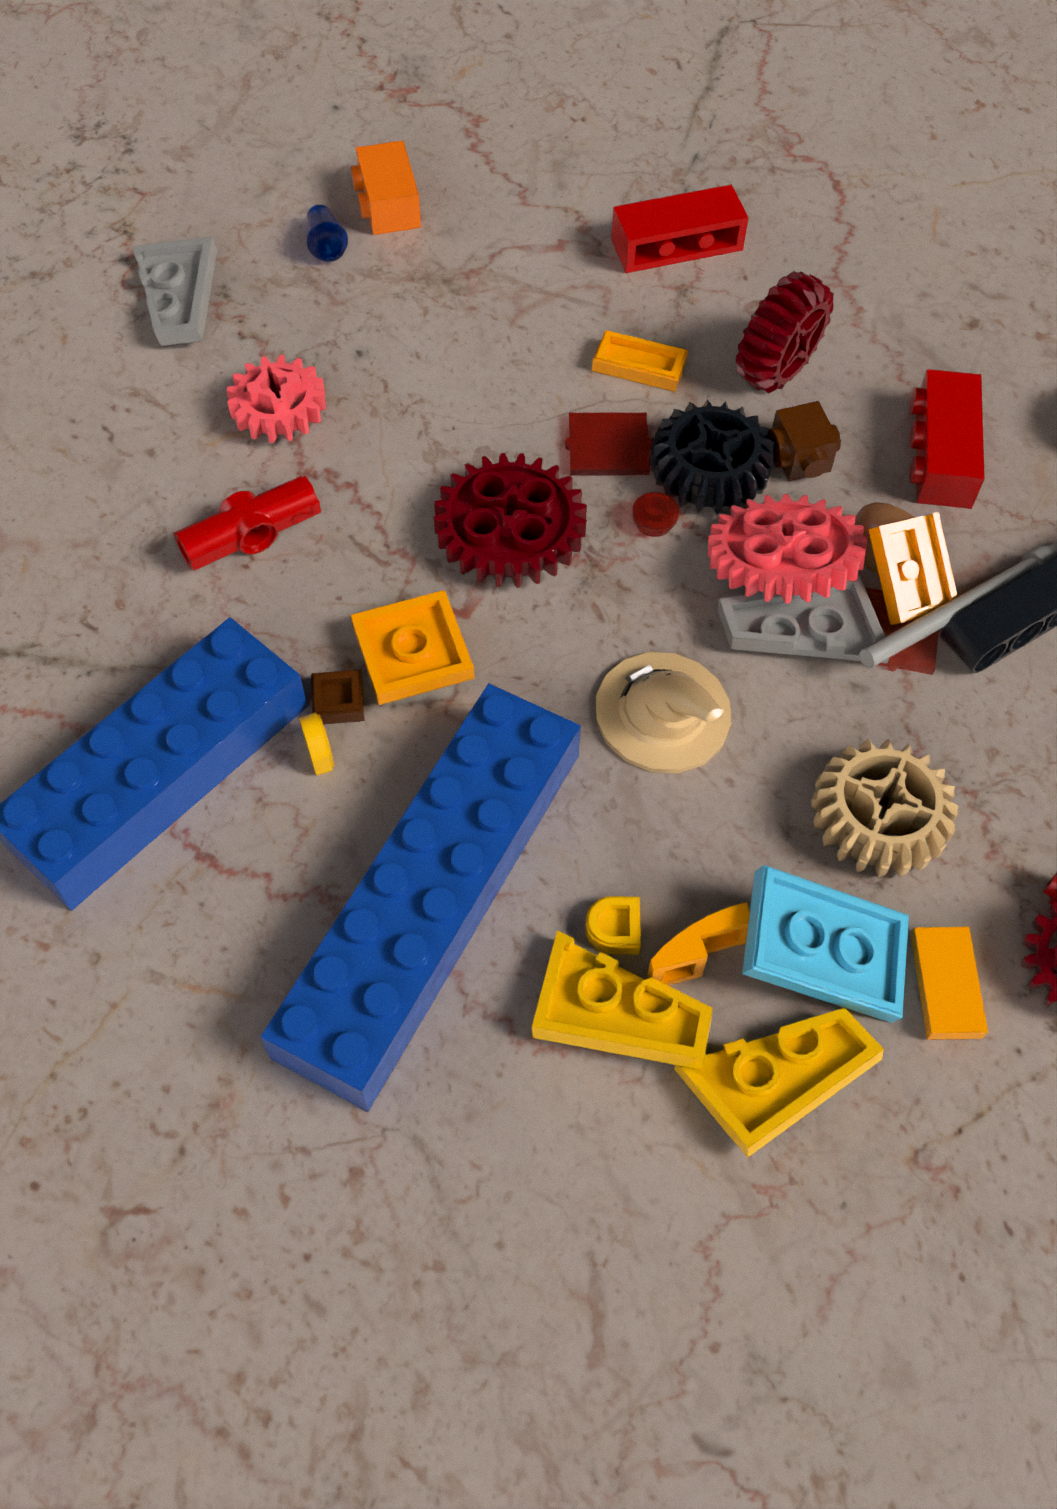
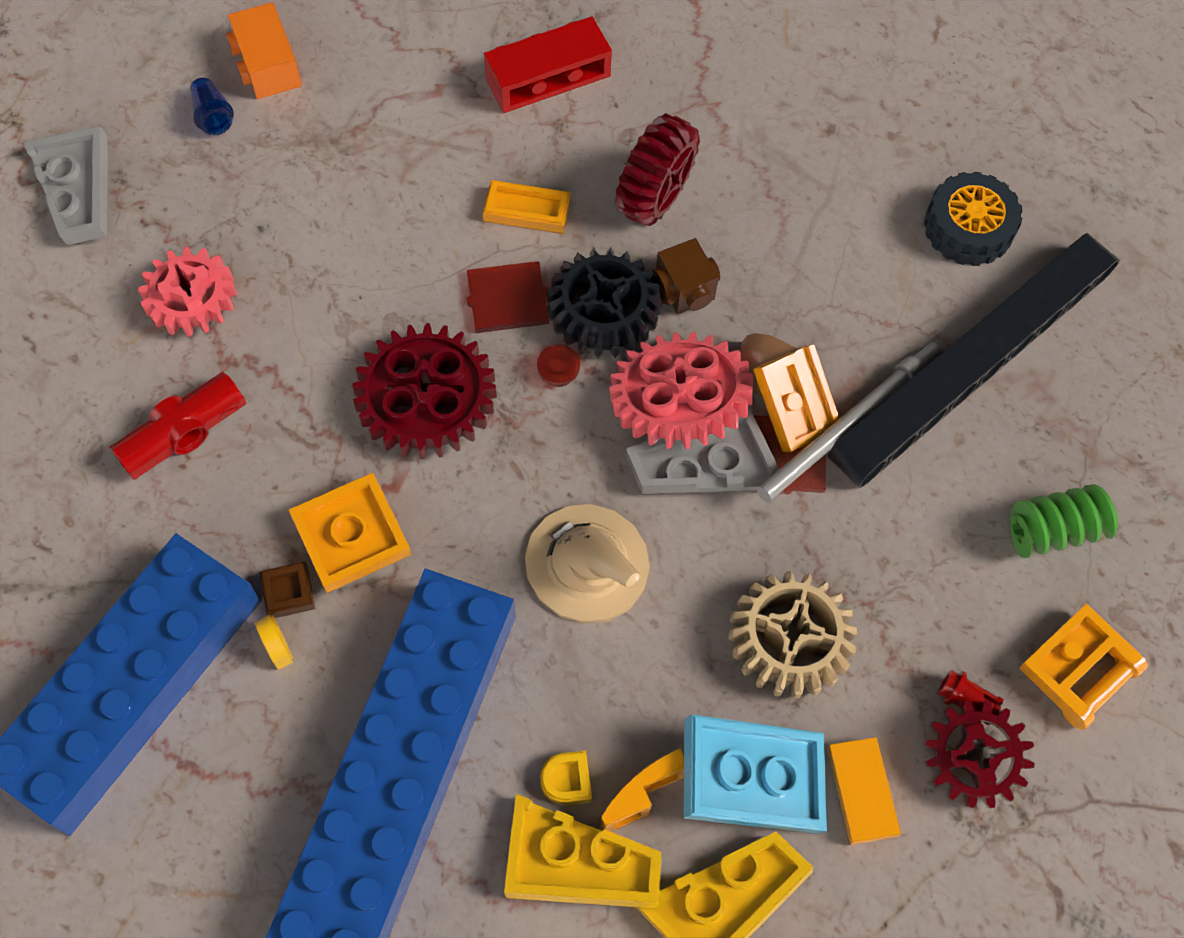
camera: 10 degrees left, 5 degrees up
(947, 439) = (816, 257): red brick -> none

